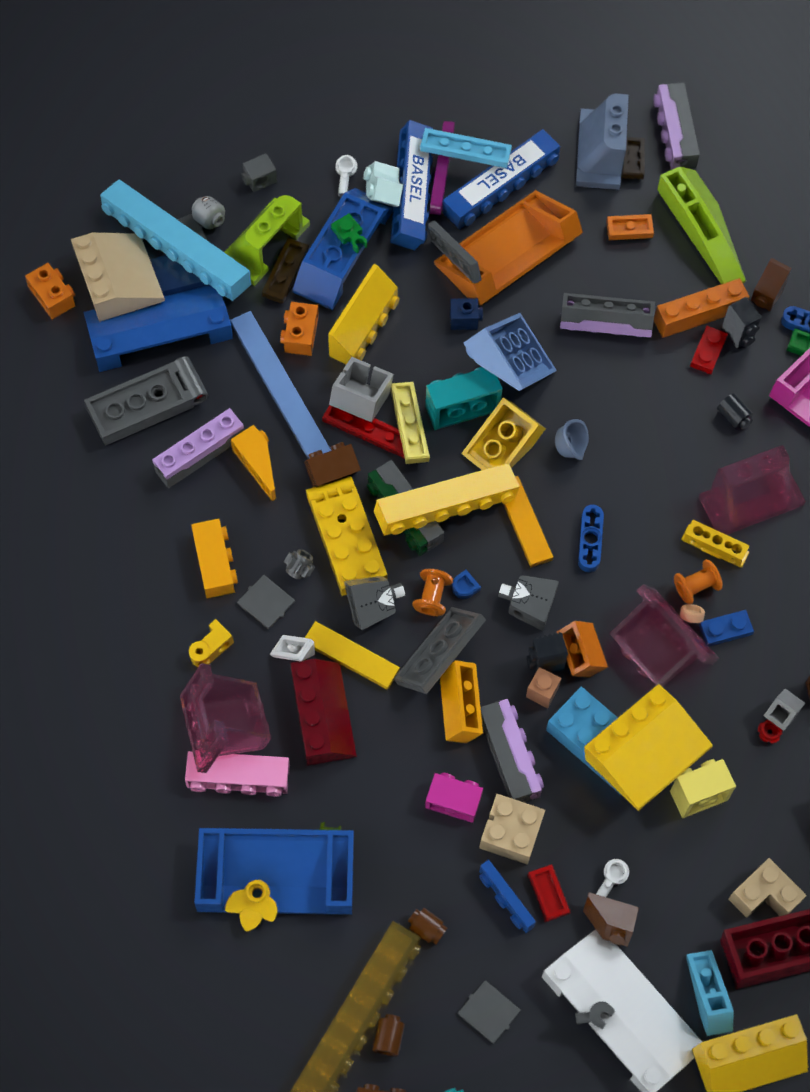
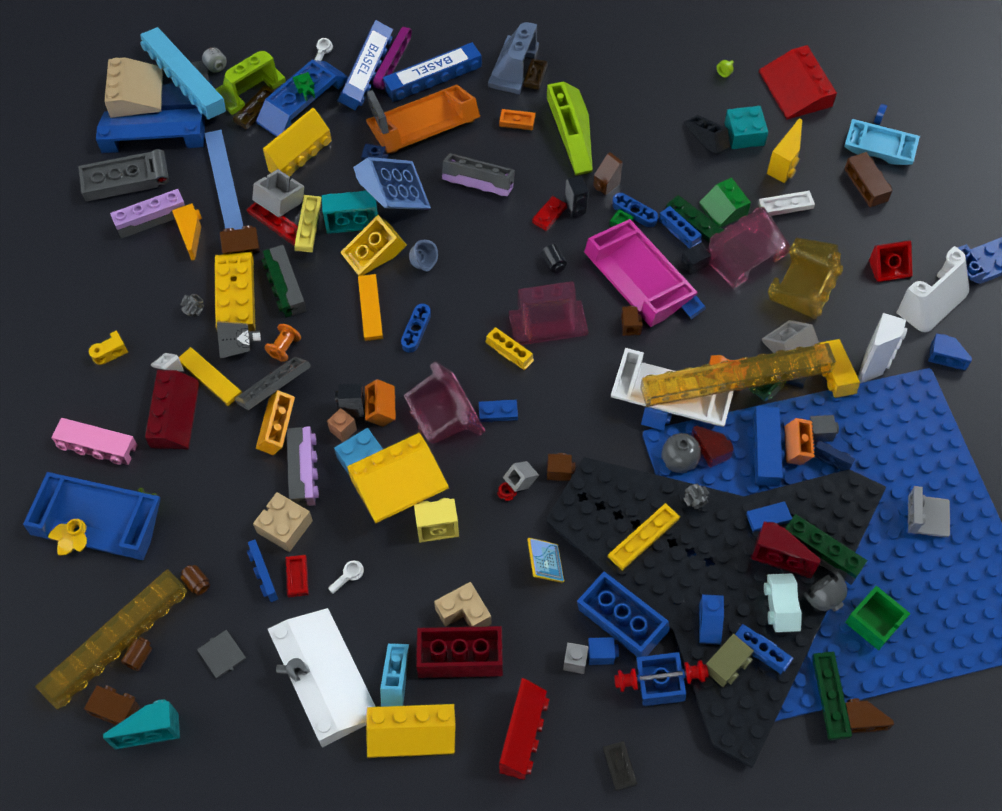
camera: 15 degrees right, 5 degrees down
(50, 290) = (85, 93): orange brick -> none
(214, 558) = (132, 290): light orange brick -> none
(222, 716) = (96, 398): clear pink windscreen -> none
(259, 172) = (259, 40): dark grey brick -> none
(266, 602) = (161, 328): dark grey piece -> none
(300, 328) = (251, 147): orange brick -> none
(383, 183) = (343, 59): light aqua brick -> none
(446, 499) = (311, 277): yellow brick -> none
(454, 797) = (247, 490): dark pink brick -> none
(465, 148) = (410, 44): medium azure plate -> none
(465, 585) = (310, 343): blue tile -> none
(530, 599) = (355, 361): dark grey torso -> none
(611, 918) = (337, 603): slope -> none
(677, 126) = (574, 56): piece -> none
(692, 613) = (473, 394): light nougat tile -> none
(698, 308) = (546, 182): orange brick -> none
(698, 581) = (485, 372): orange hose -> none

